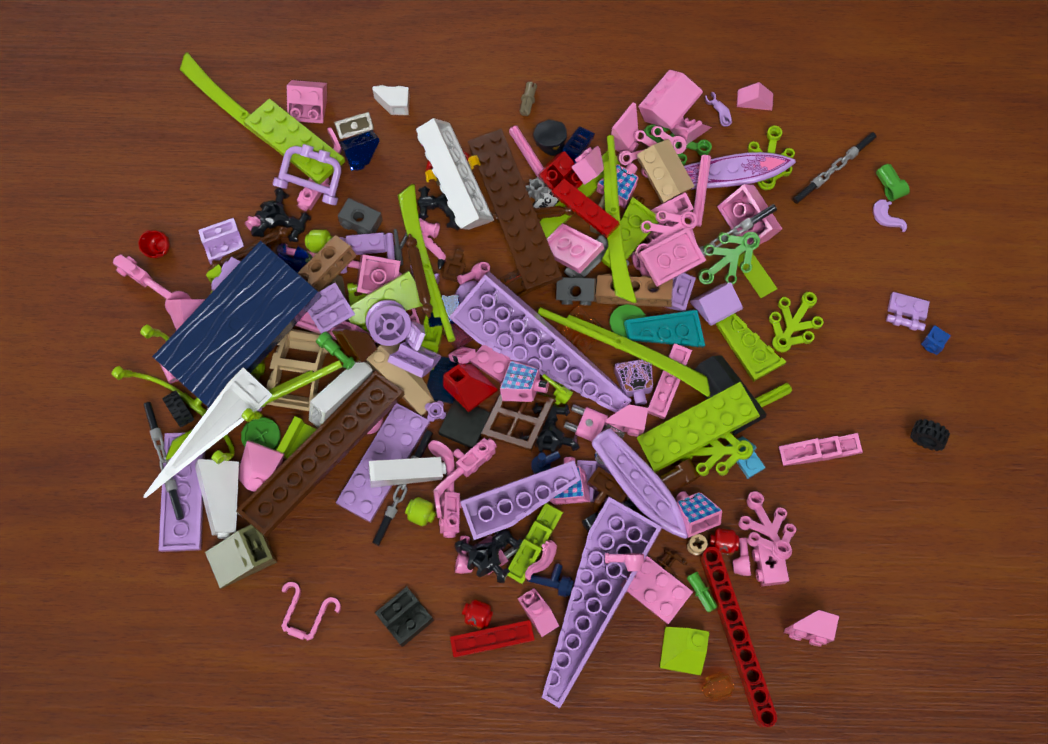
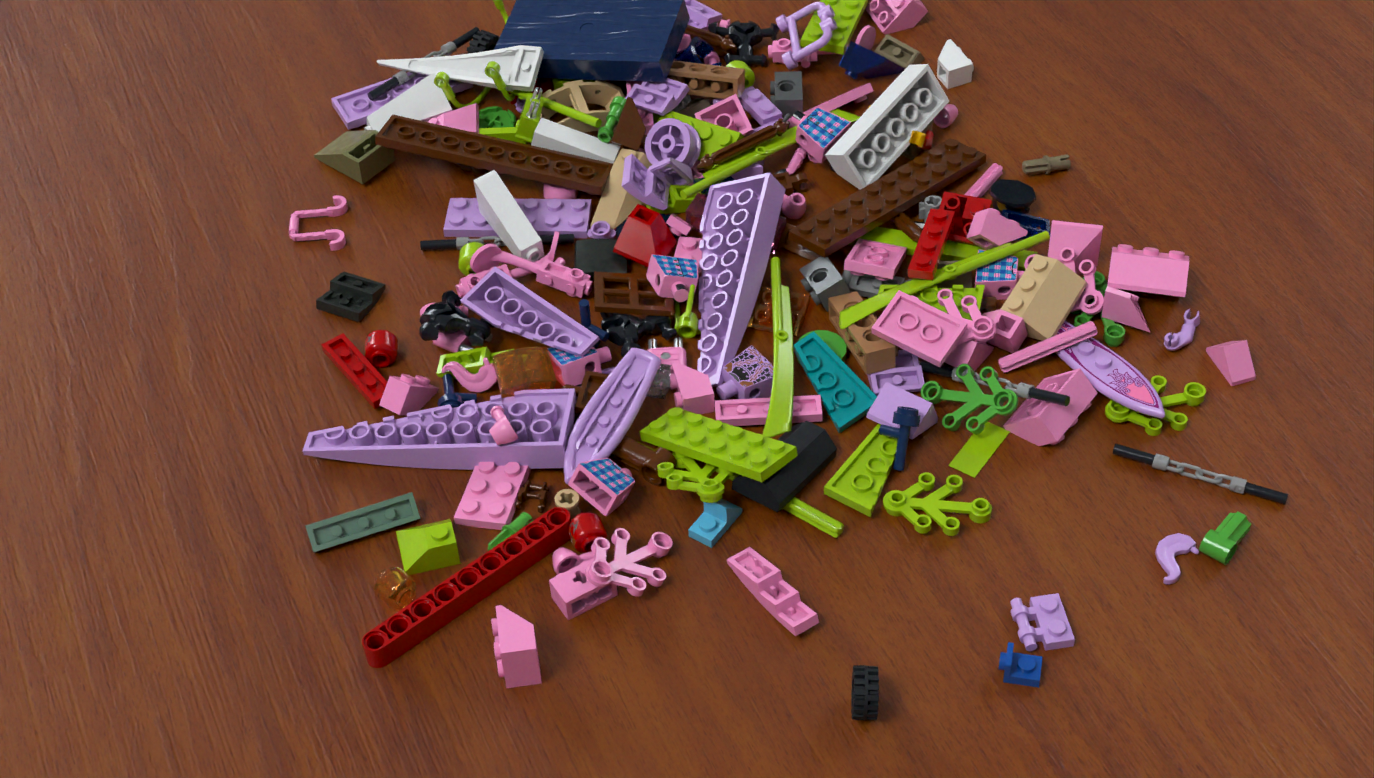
camera: 70 degrees right, 25 degrees down
(298, 409) = (529, 116): none -> lime piece
(388, 197) = (856, 95): none -> bright pink plate
(431, 219) = (819, 131): none -> torso
(568, 523) = (524, 369): none -> clear orange slope
(646, 688) = (362, 522): none -> sand green plate
(738, 306) = (906, 418): none -> dark blue piece

